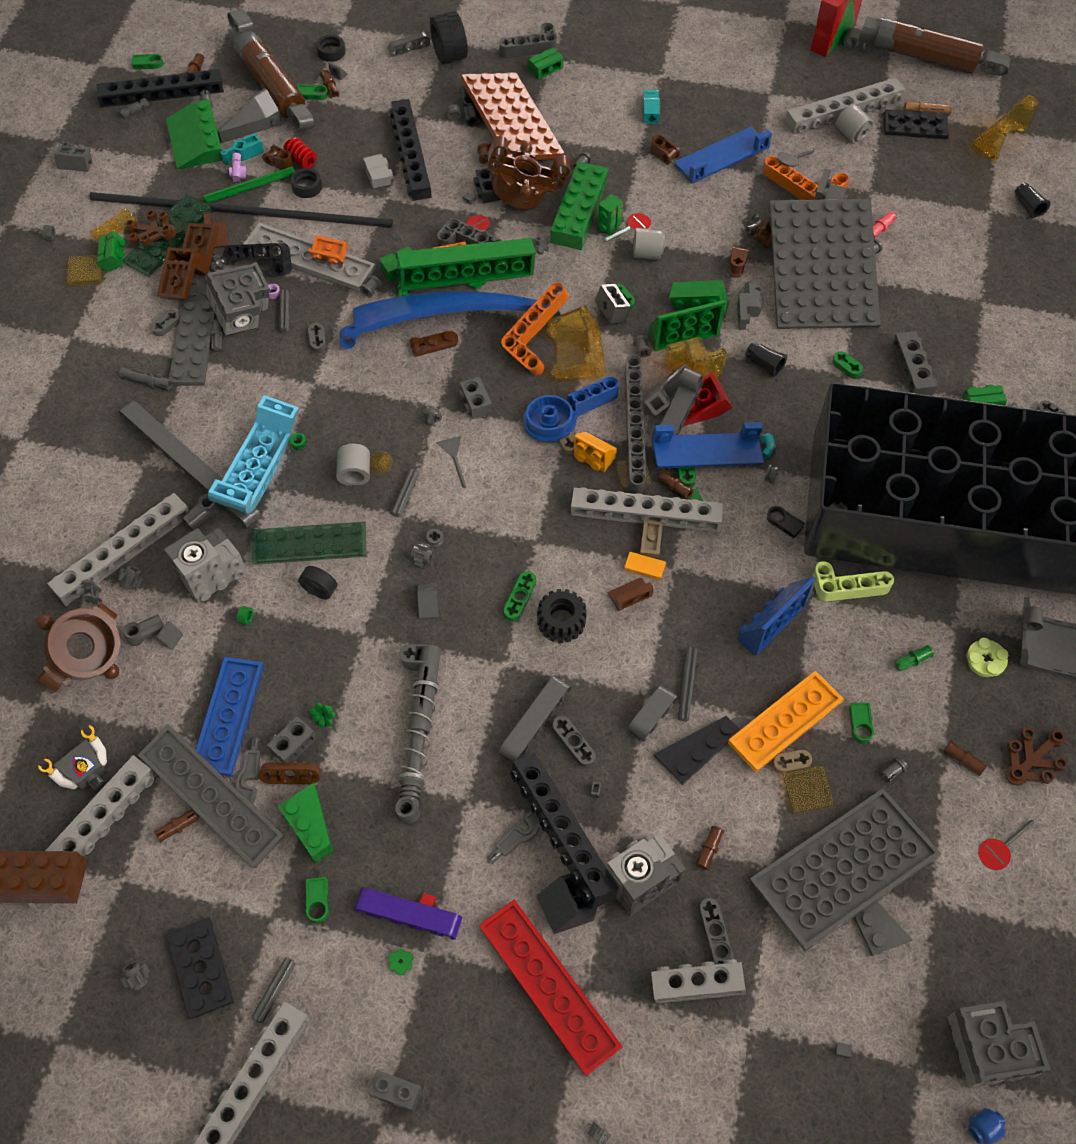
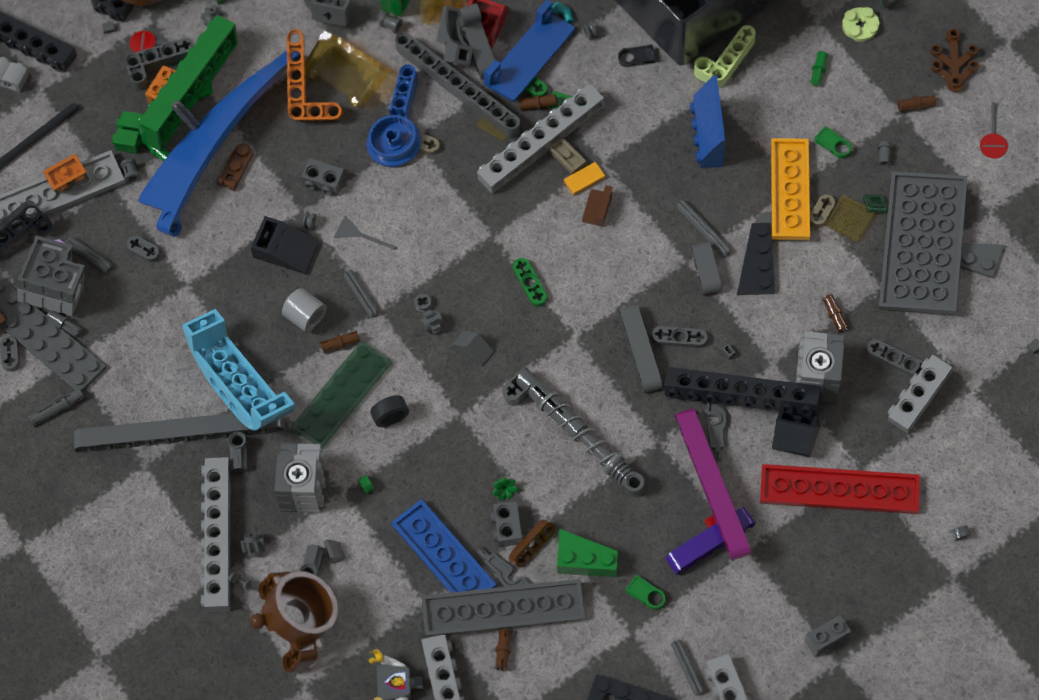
camera: 45 degrees left, 5 degrees up
(300, 436) = (233, 330): green axle -> none
(351, 508) = (340, 341): none -> reddish brown pin
(381, 462) = (316, 288): clear yellow slope -> none
(396, 414) = (283, 245): none -> black slope
(406, 957) = (739, 565): green plant -> none
(433, 276) = (185, 115): none -> dark grey axle
(454, 875) = (713, 484): none -> magenta beam
(561, 629) = (577, 279): black tyre -> none
(593, 451) = (456, 133): light orange slope -> none
(840, 798) = (874, 203): none -> clear green tile

